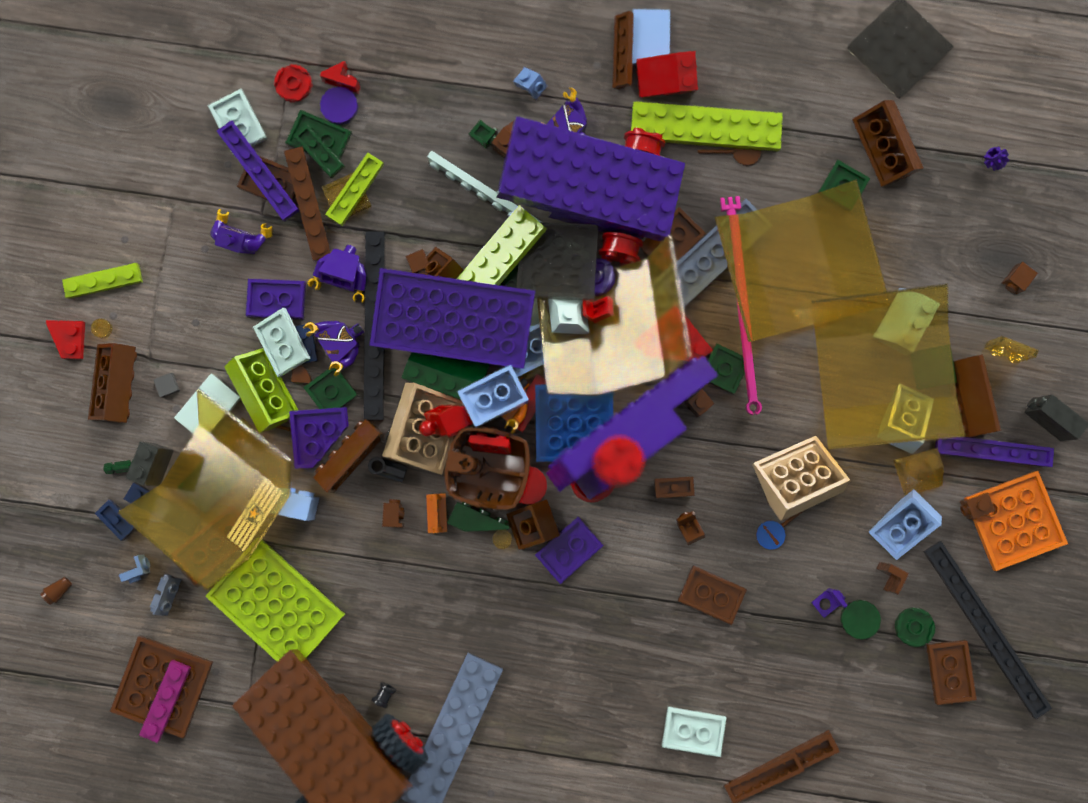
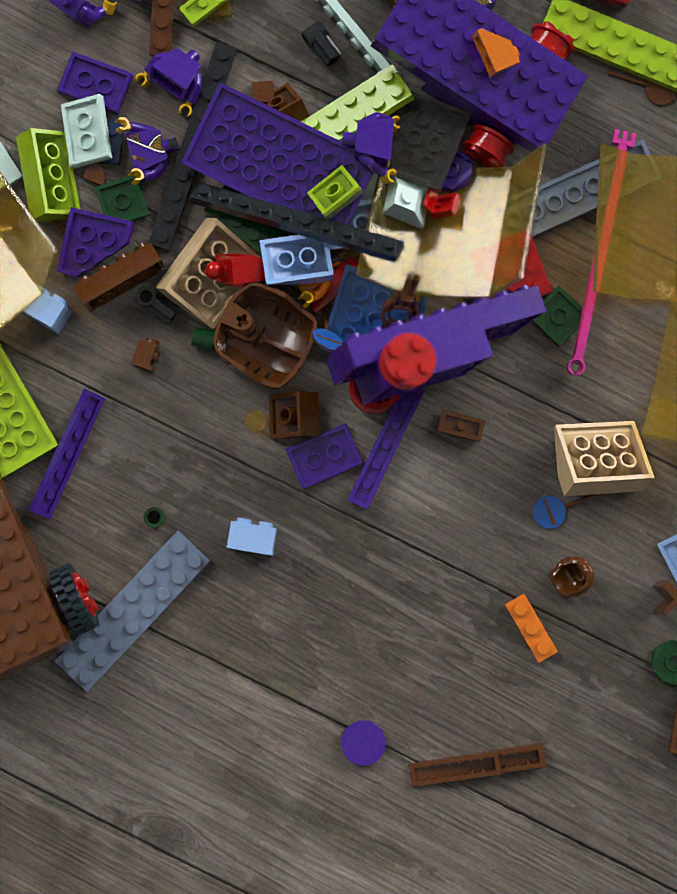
camera: 10 degrees right, 0 degrees up
(353, 620) = (66, 454): none -> dark purple plate
(383, 695) = (72, 545): black bush -> none
(436, 484) = (203, 339): none -> dark green beam
(436, 513) = (194, 369): orange hinge -> none
(444, 656) = (146, 517): none -> dark green beam
(449, 201) = (318, 38): none -> black piece
(469, 519) = (228, 388): dark green slope -> none
(484, 365) = (298, 222): none -> black plate
(497, 445) = (281, 314): red plate -> none
(506, 330) = (335, 192): none -> lime slope
(526, 278) = (374, 143): none -> dark purple torso
(532, 640) = (252, 537): none -> light blue brick
(535, 487) = (309, 376): red tile -> none
(539, 454) = (324, 337): none -> blue piece
(594, 400) = (402, 300): none -> reddish brown pin
(603, 169) = (496, 52): none -> orange slope
(616, 533) = (384, 448): none -> dark purple plate
(680, 781) = (363, 742): none -> dark purple tile
(684, 233) = (560, 157): reddish brown plate -> none
(690, 527) = (463, 474): reddish brown bracket -> none
(694, 731) = (395, 695): light aqua tile -> none
(699, 403) = (518, 343): reddish brown brick -> none
(712, 595) = (463, 555): reddish brown tile -> none
(787, 637) = (531, 628): none -> orange plate
(808, 584) = (572, 577): none -> reddish brown hair
(834, 596) = (596, 600): dark purple bracket -> none
(860, 619) = (616, 634): dark green tile -> none

